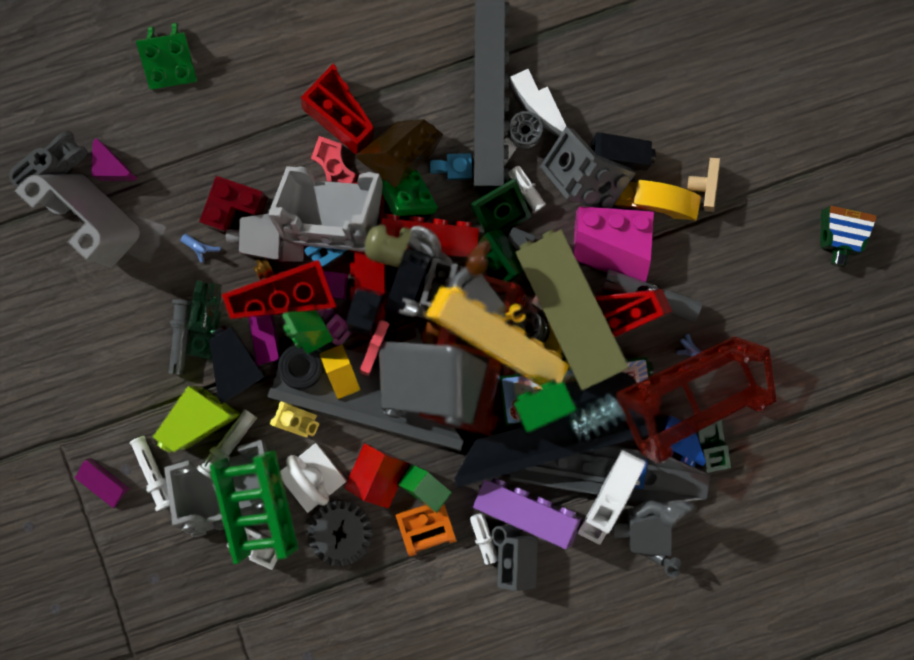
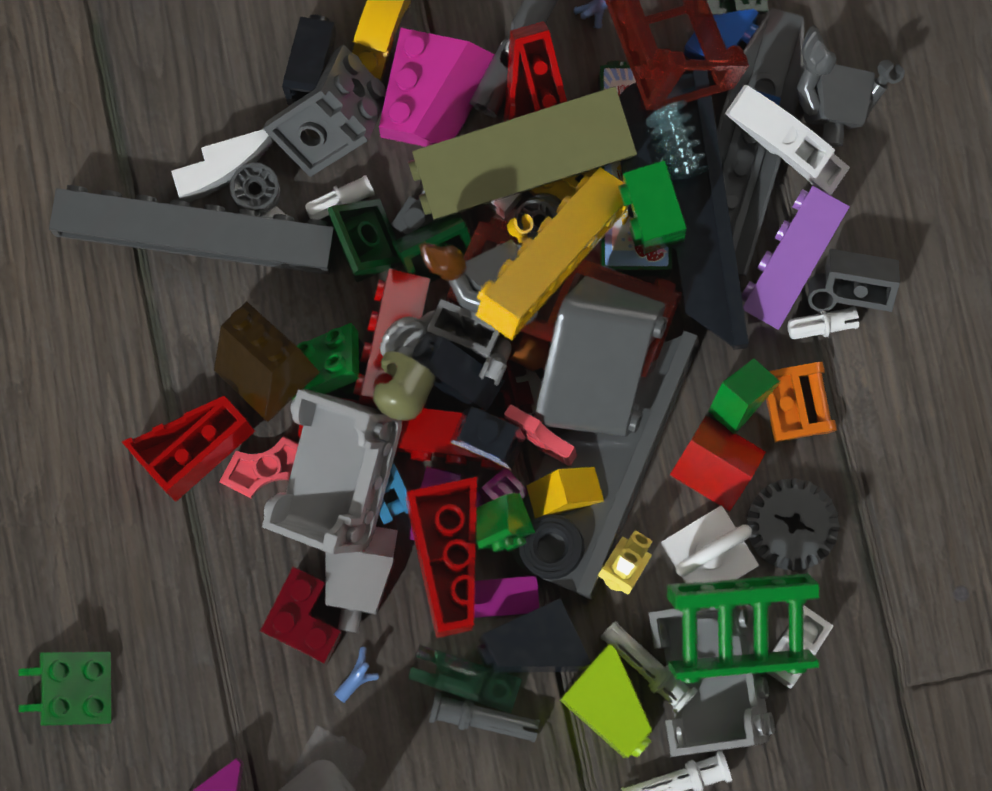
camera: 85 degrees left, 5 degrees down
(263, 269) = (404, 585): pearl gold plate -> none
(457, 167) = (292, 293): dark azure plate -> none

